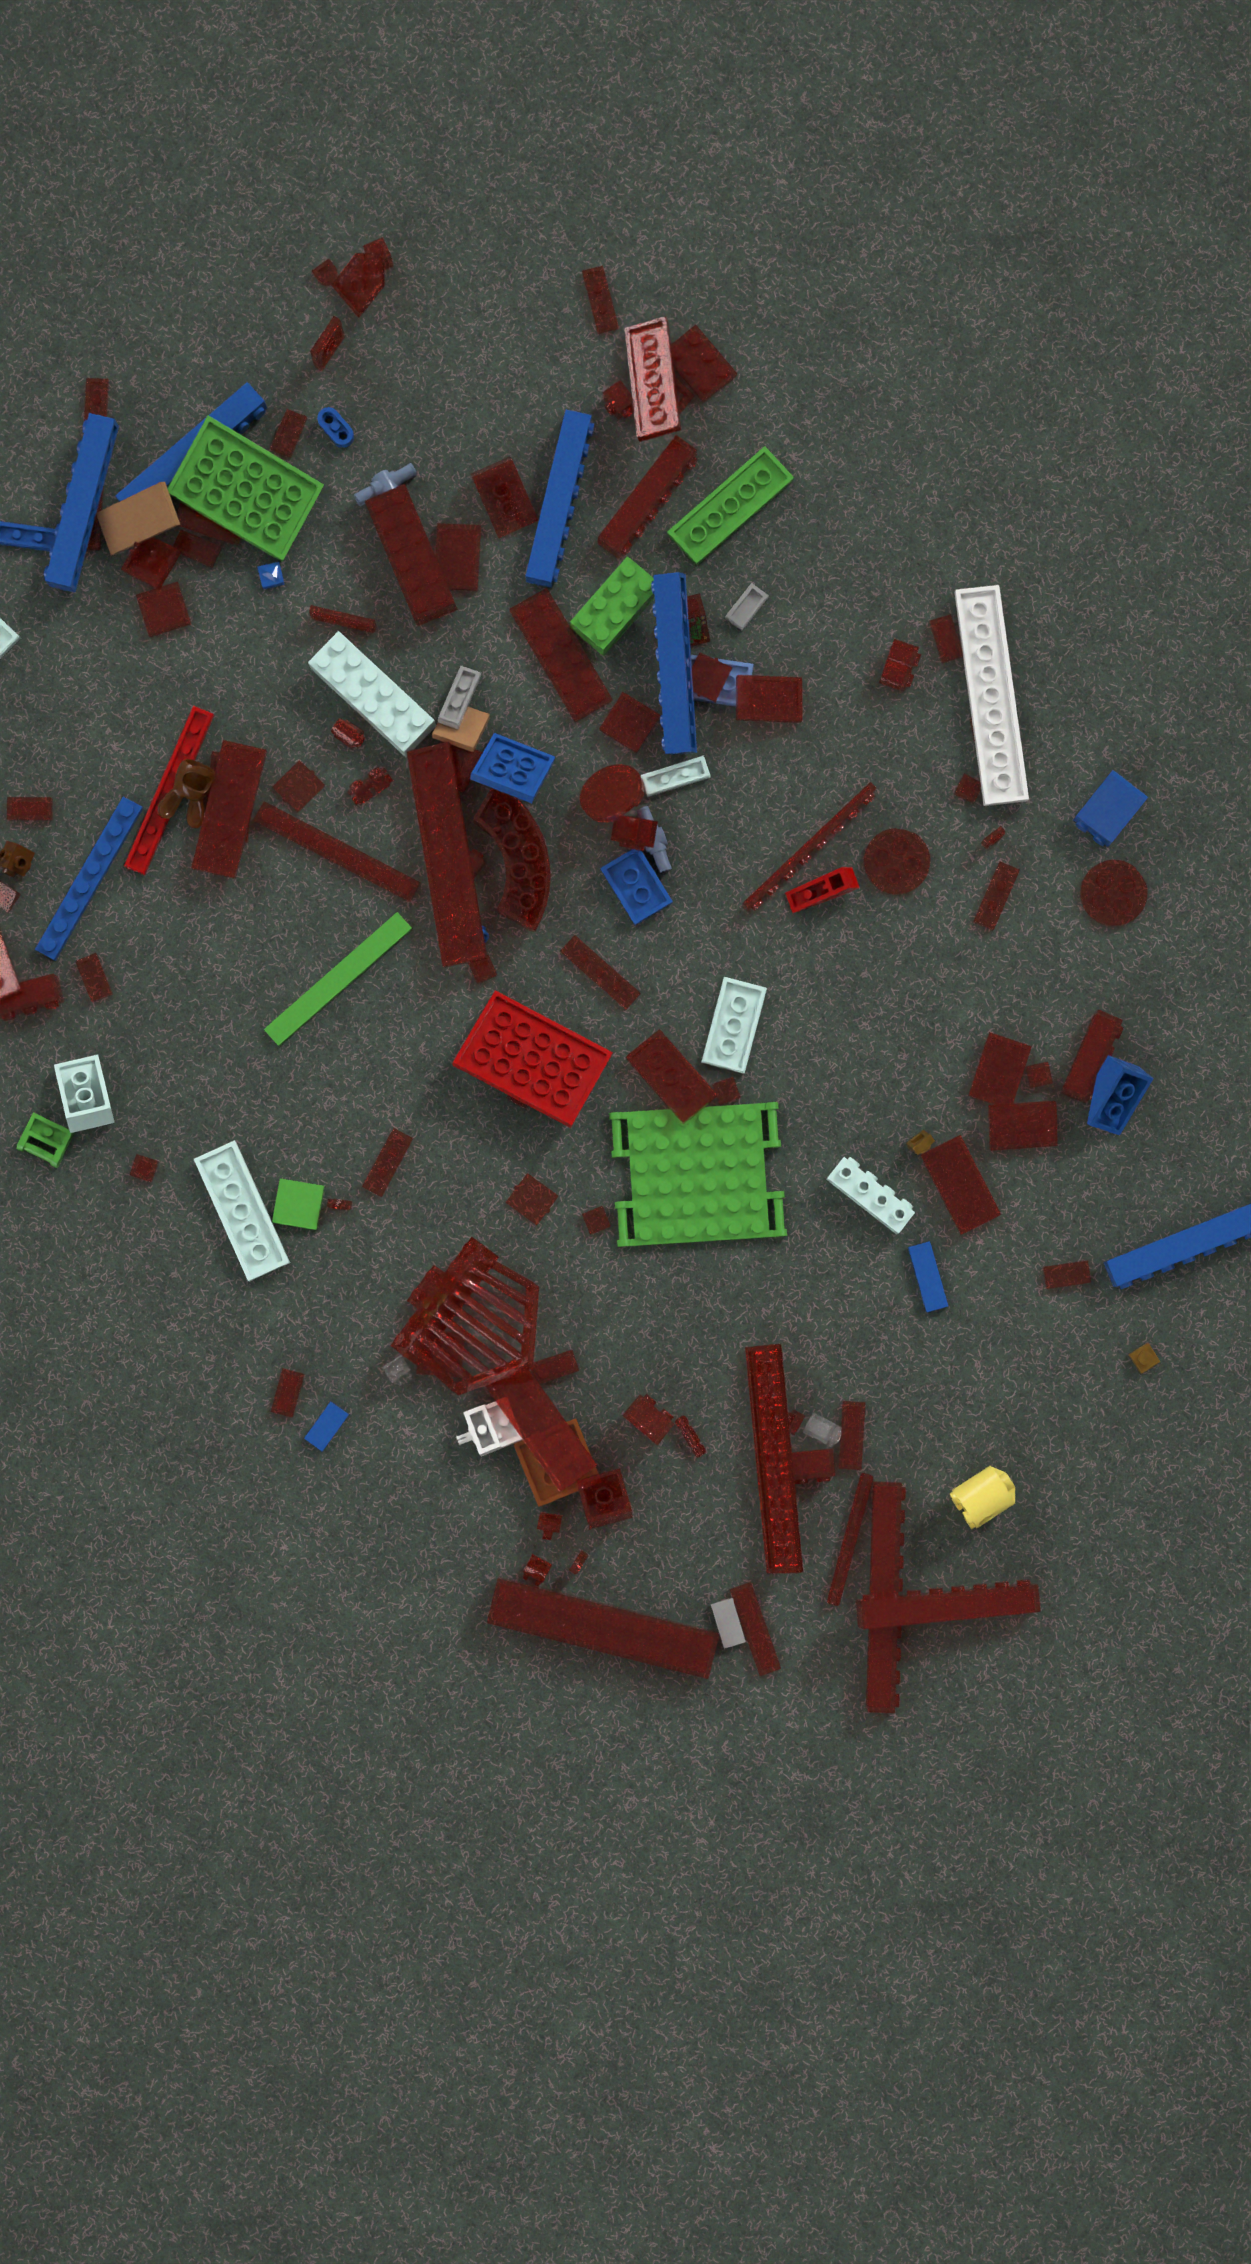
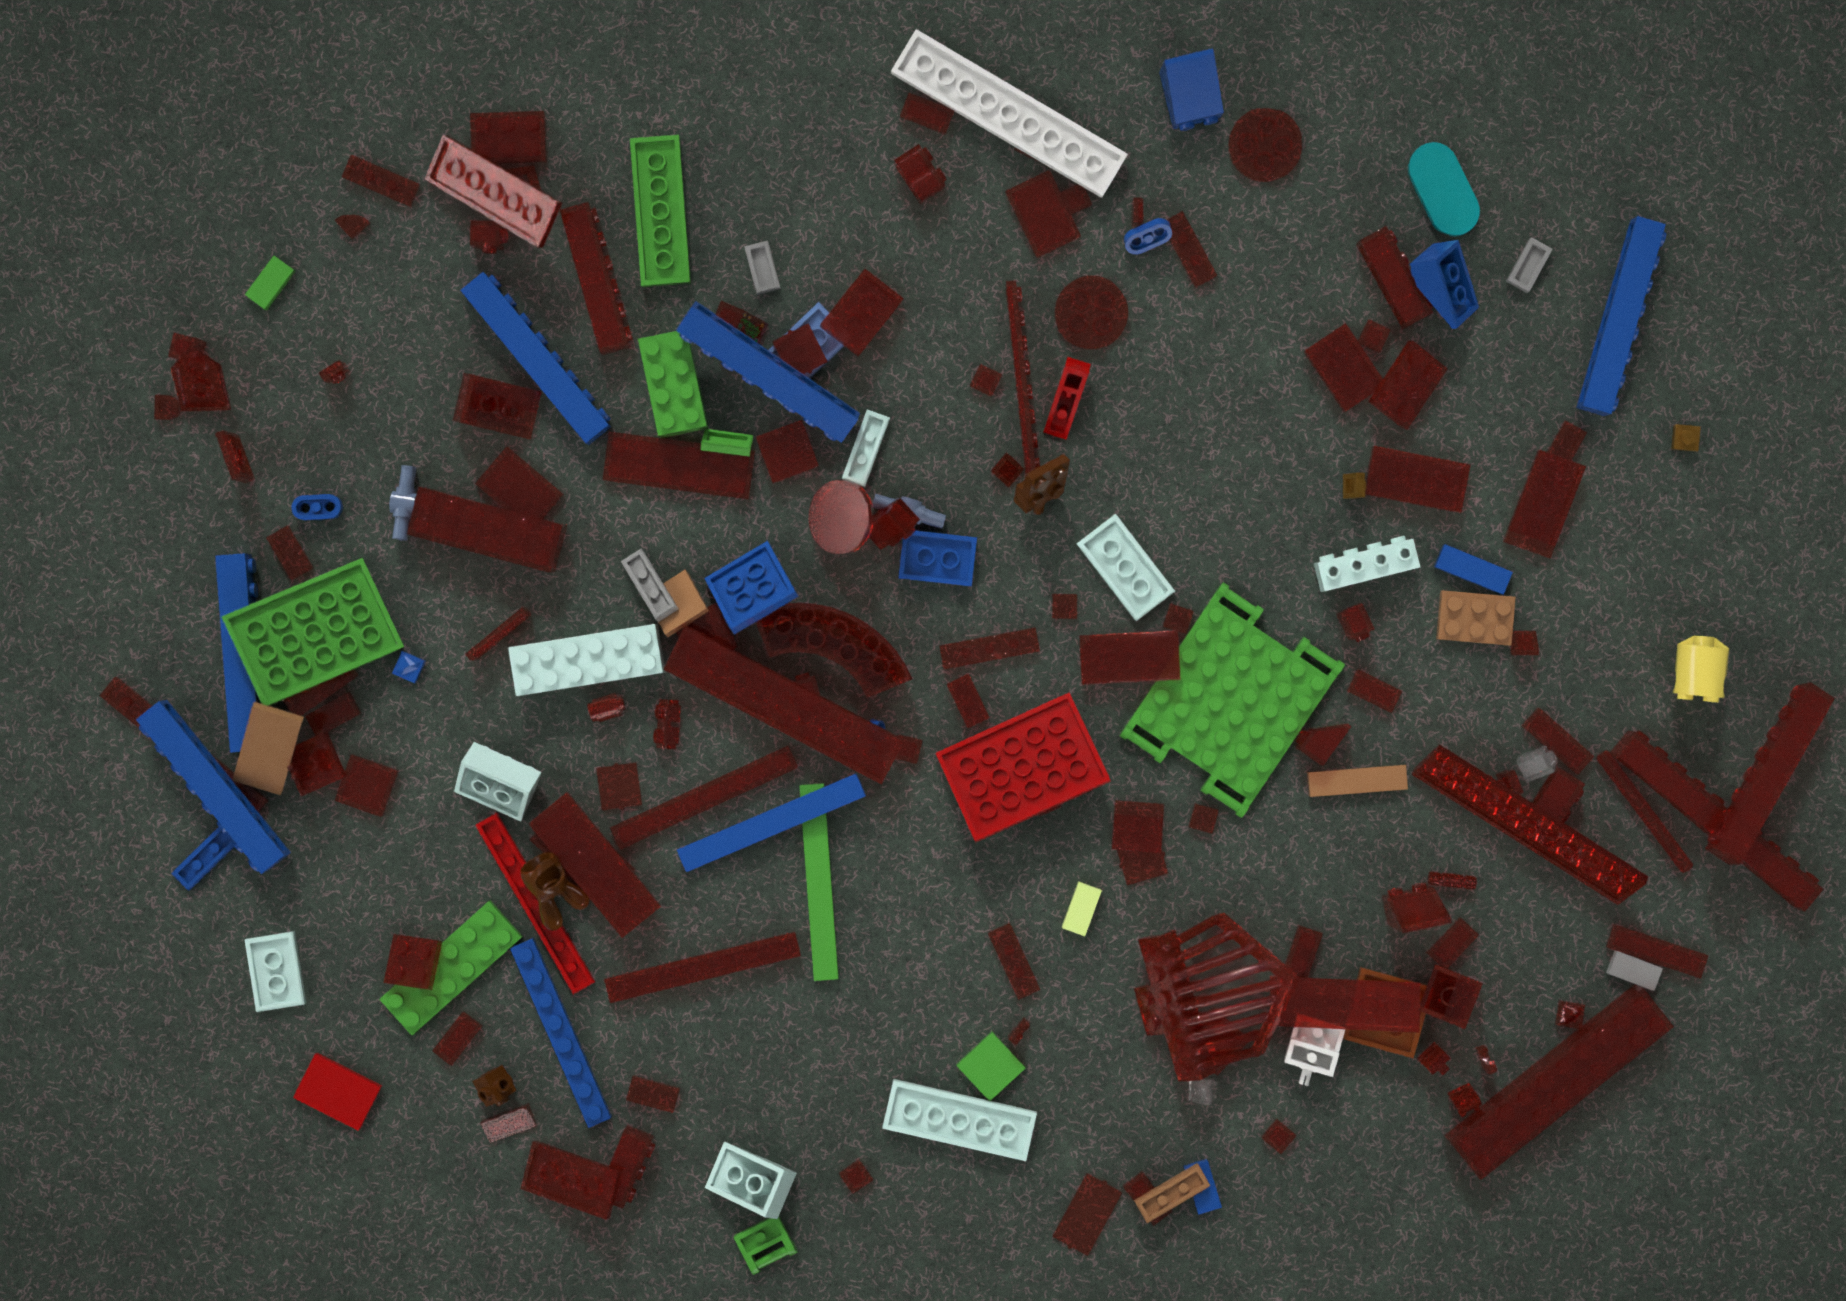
camera: 50 degrees left, 5 degrees up
(61, 735) = (412, 962): none -> clear red plate
(77, 766) = (460, 962): none -> bright green plate
(213, 942) = (702, 967): none -> clear red plate
(236, 696) = (497, 781): none -> light aqua slope
(242, 1357) = (1087, 1214): none -> clear red piece
(305, 1405) = (1172, 1193): none -> medium nougat tile
(355, 912) = (771, 822): none -> blue tile
(406, 1453) = (1278, 1136): none -> clear red tile
(440, 368) = (334, 373): none -> clear red plate
(463, 1182) = (1081, 908): none -> yellowish green tile
(469, 278) = (270, 282): none -> bright green tile
(550, 985) = (968, 700): none -> clear red plate
(553, 1176) = (1137, 826): none -> clear red tile
(554, 303) = (352, 224): none -> clear red tile
(603, 675) = (727, 442): none -> bright green tile
(644, 1472) = (1452, 943): none -> clear red tile
(659, 1600) = (1570, 1014): none -> clear red tile
(672, 1002) = (1064, 606): none -> clear red tile
(709, 1310) = (1357, 780): none -> medium nougat tile
(717, 1260) = (1321, 741): none -> clear red slope
(738, 886) = (1007, 470): none -> clear red slope
(745, 916) = (1042, 485): none -> reddish brown plate
(784, 1273) = (1374, 691): none -> clear red tile
(790, 823) = (985, 380): none -> clear red tile
(823, 1219) = (1355, 622): none -> clear red brick
(894, 1306) = (1476, 618): none -> medium nougat plate
(903, 1355) = (1524, 643): none -> clear red slope
(939, 773) = (1043, 214): none -> clear red tile
(982, 860) = (1148, 236): none -> blue plate
(1015, 1291) = (1544, 503): none -> clear red tile
(1178, 1147) = (1529, 265): none -> light grey tile
(1183, 1044) = (1443, 189): none -> teal tile

